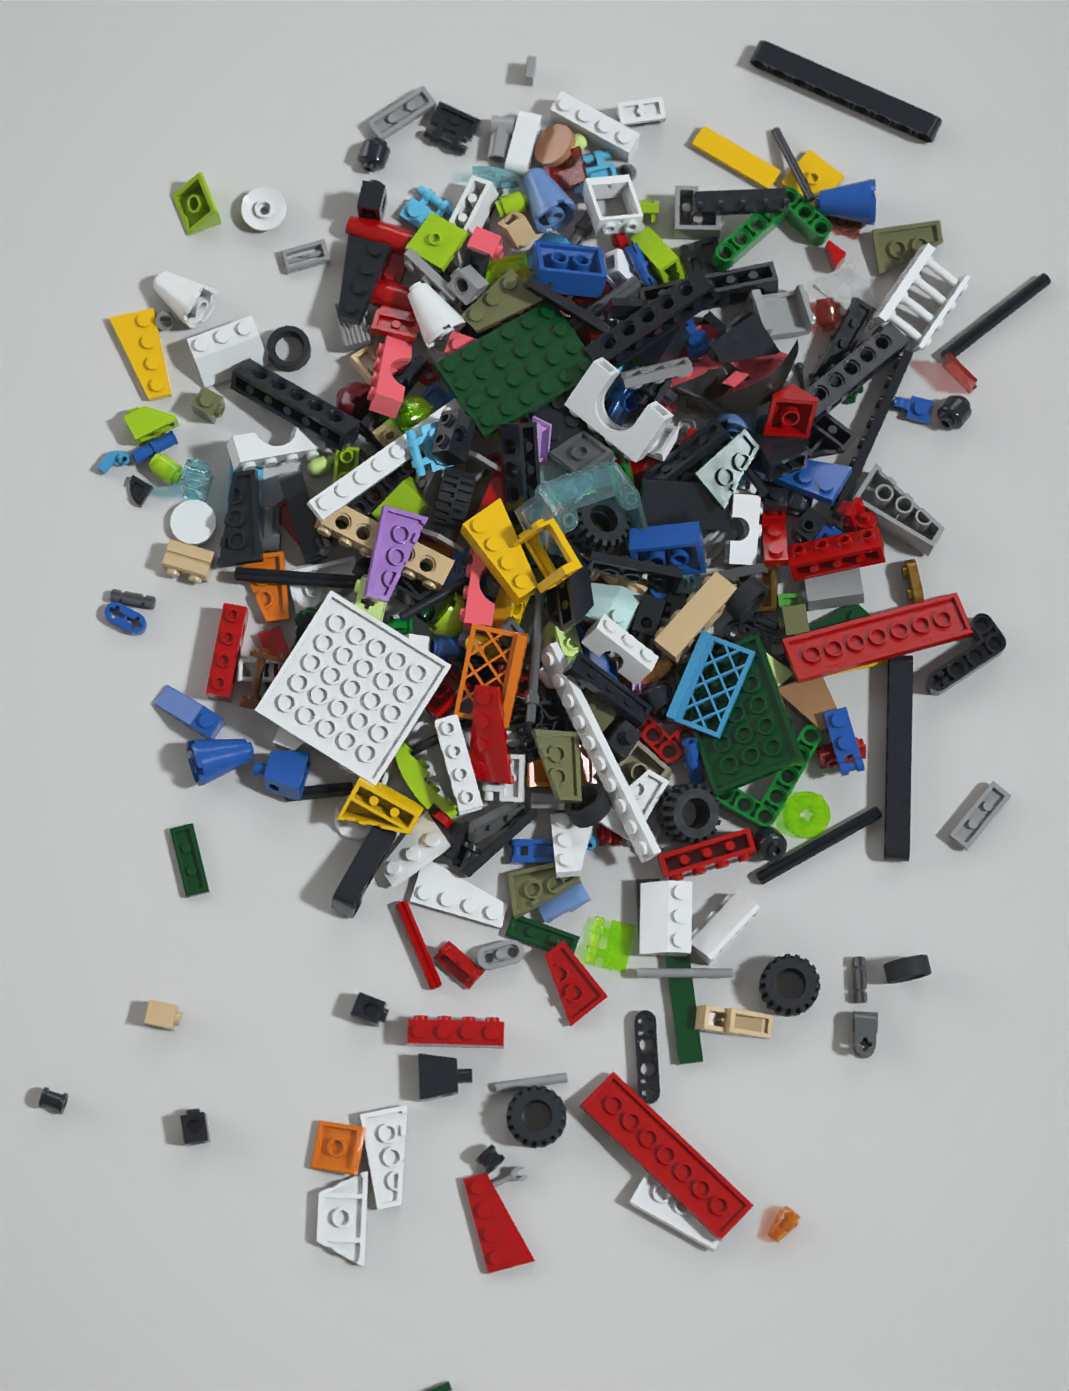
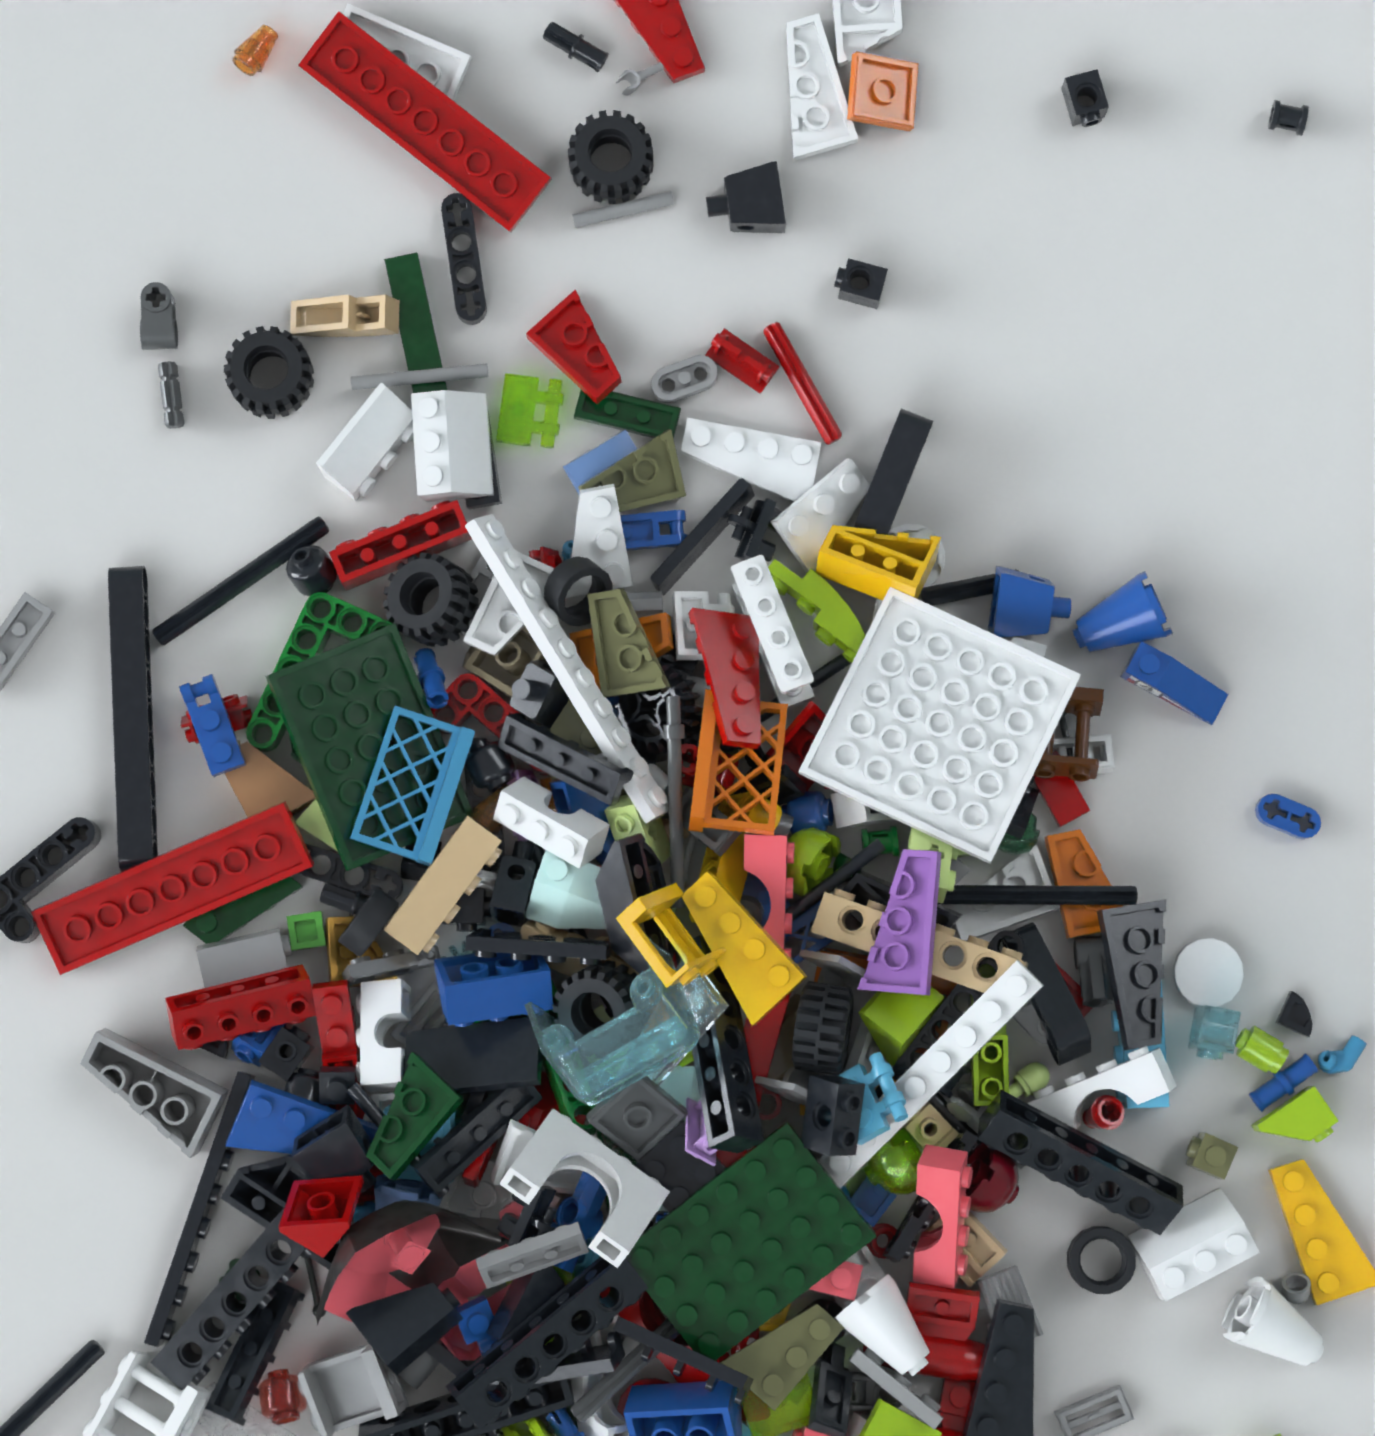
camera: 175 degrees right, 5 degrees up
(133, 599) = (1281, 846): dark grey axle -> none
(163, 1015) = (1152, 247): tan brick -> none
(188, 561) = (1207, 909): tan brick -> none
(189, 860) = (1144, 472): dark green tile -> none
(226, 652) = (1131, 776): red brick -> none
(275, 435) = (1104, 1113): none -> red cone
(441, 818) = (789, 561): red tile -> none
(455, 1033) = (736, 261): red brick -> none
(475, 282) = (839, 1376): light grey brick -> none
(490, 1159) = (669, 96): black wheel -> none
(493, 821) = (711, 565): dark grey hinge -> none
(554, 1204) = (575, 46): none -> black axle
(793, 619) = (298, 903): olive brick -> none
(814, 803) = (246, 611): clear neon green plate -> none
(856, 515) = (212, 1068): red hips -> none
(907, 969) = (102, 408): black tyre -> none
(910, 572) = (129, 997): pearl gold plate -> none
(917, 409) = (135, 1258): blue plate -> none
(954, 412) = (77, 1257): black head -> none
(959, 373) = (71, 1319): clear red piece -> none

